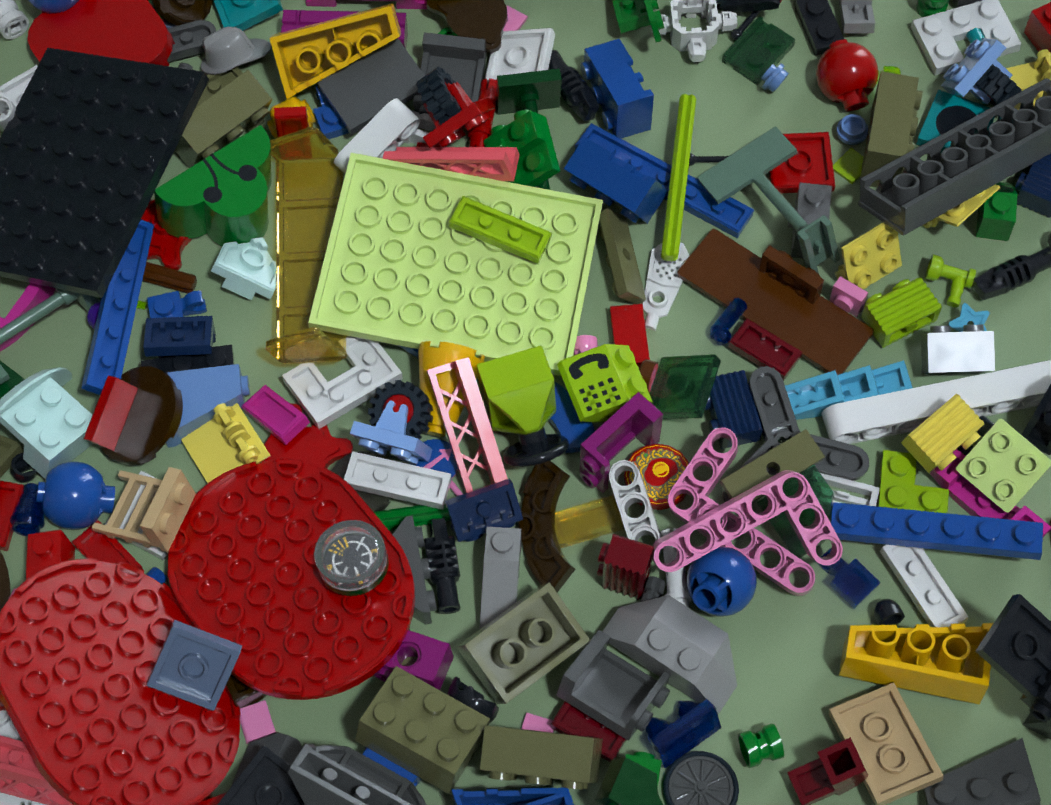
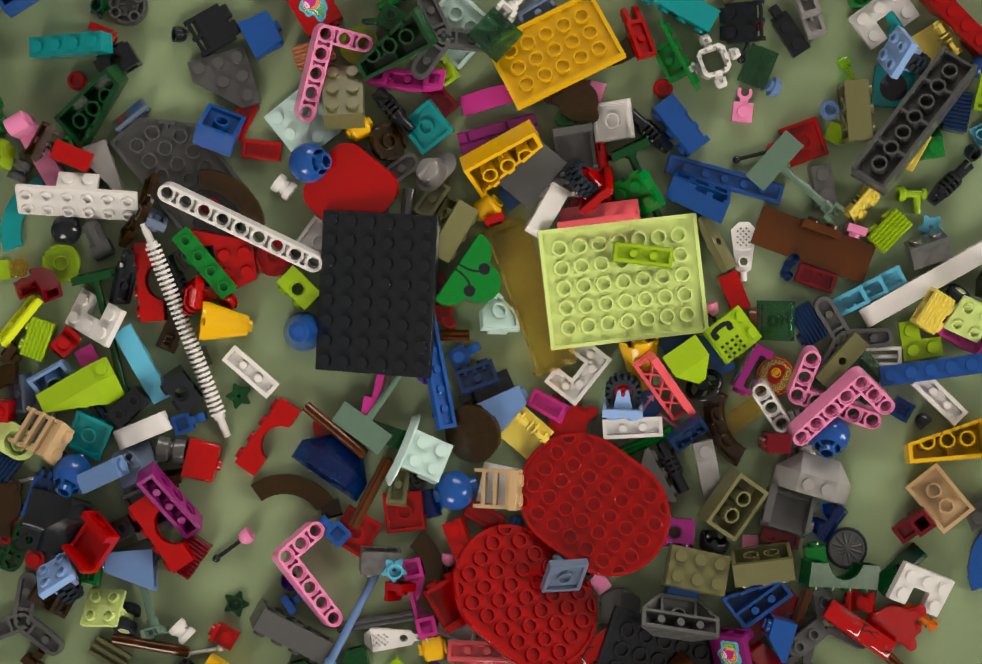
camera: 20 degrees left, 25 degrees up
(110, 413) = (458, 439): red tile -> none
(351, 557) = (629, 492): clear piece -> none
(607, 33) = (662, 88): none -> red plate
(678, 178) = (735, 178): lime axle -> none
(720, 96) = (742, 110): none -> bright pink plate
(761, 745) = (873, 518): green wheel -> none
(847, 74) = (818, 74): red brick -> none

